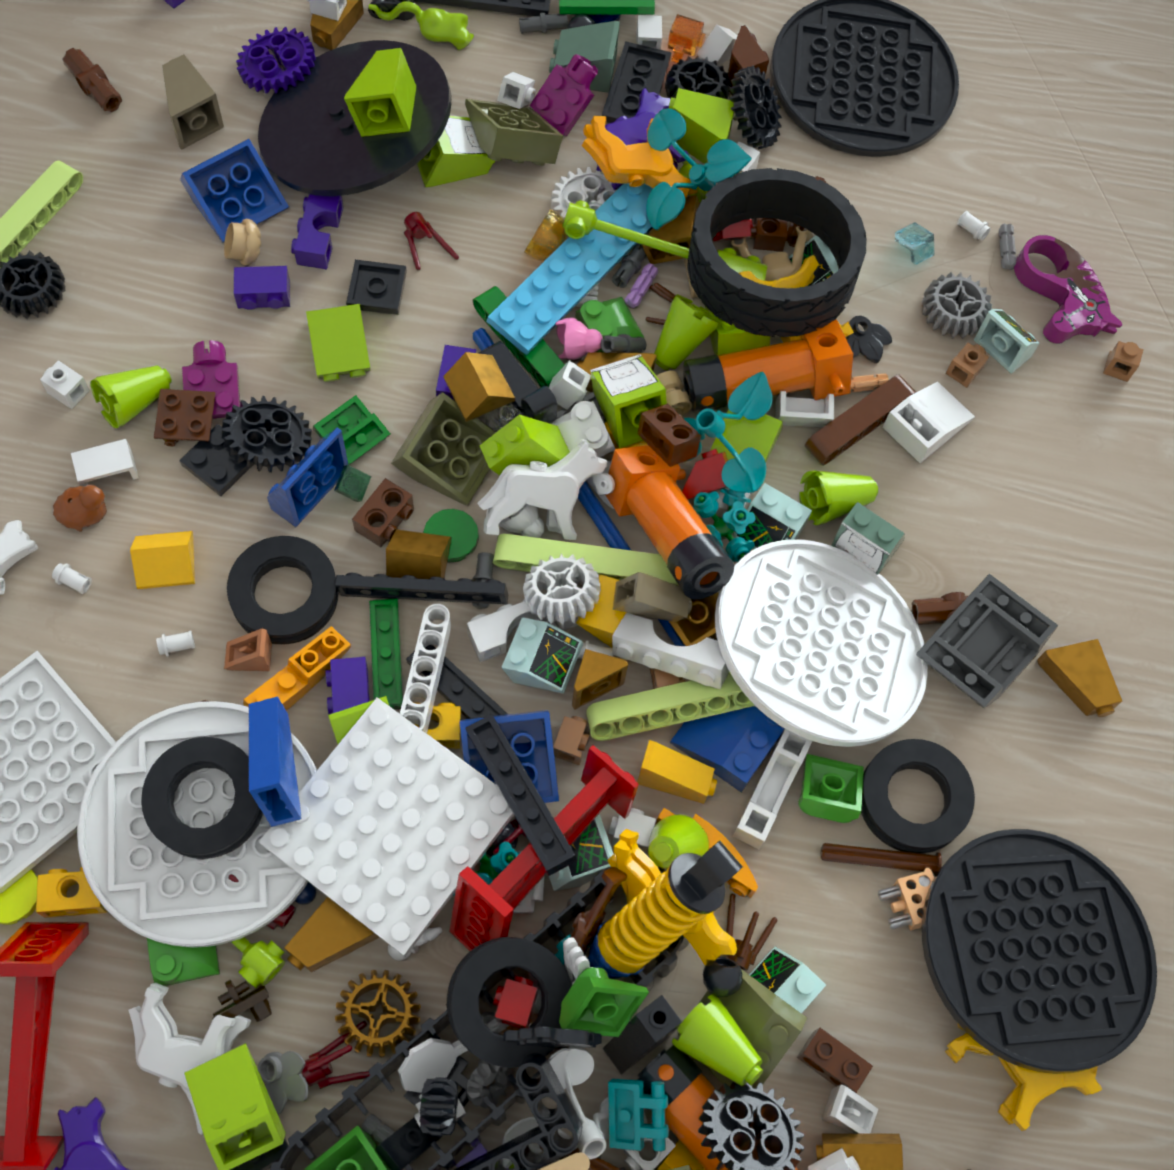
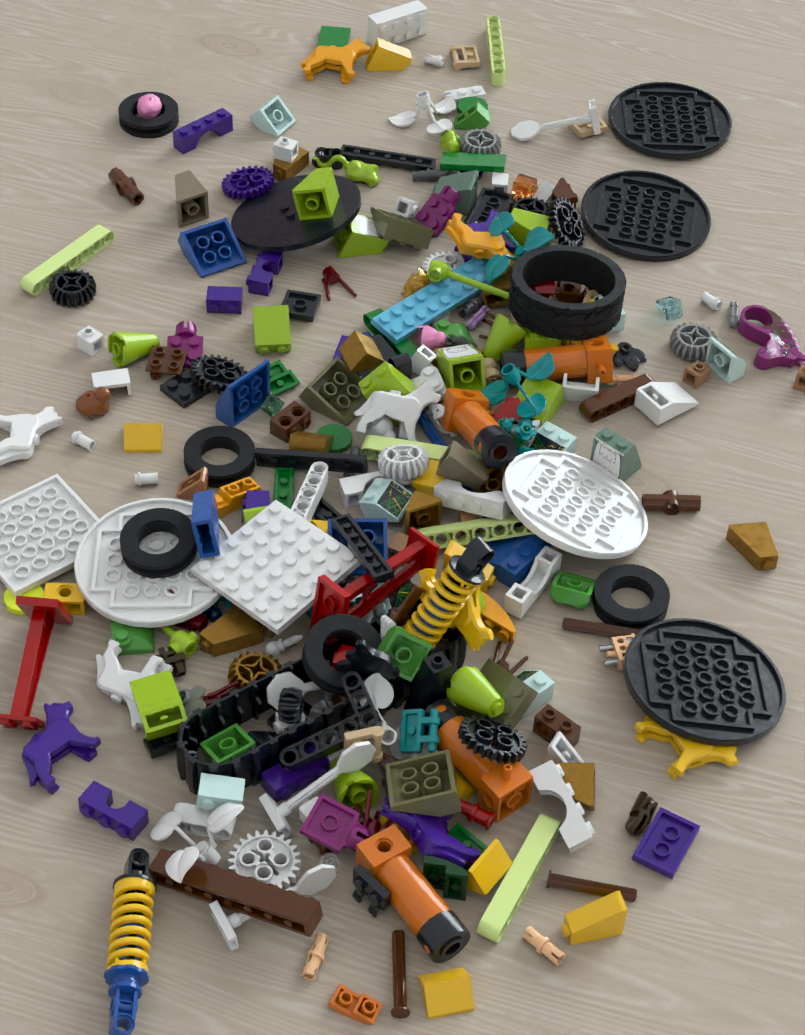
camera: 10 degrees right, 20 degrees down
(242, 242) = (214, 273): tan piece -> none
(669, 434) = (483, 383): reddish brown brick -> none
(722, 977) = (483, 659): black piece -> none
(835, 494) = (588, 427): lime cone -> none
(987, 641) = (690, 516): dark grey slope -> none

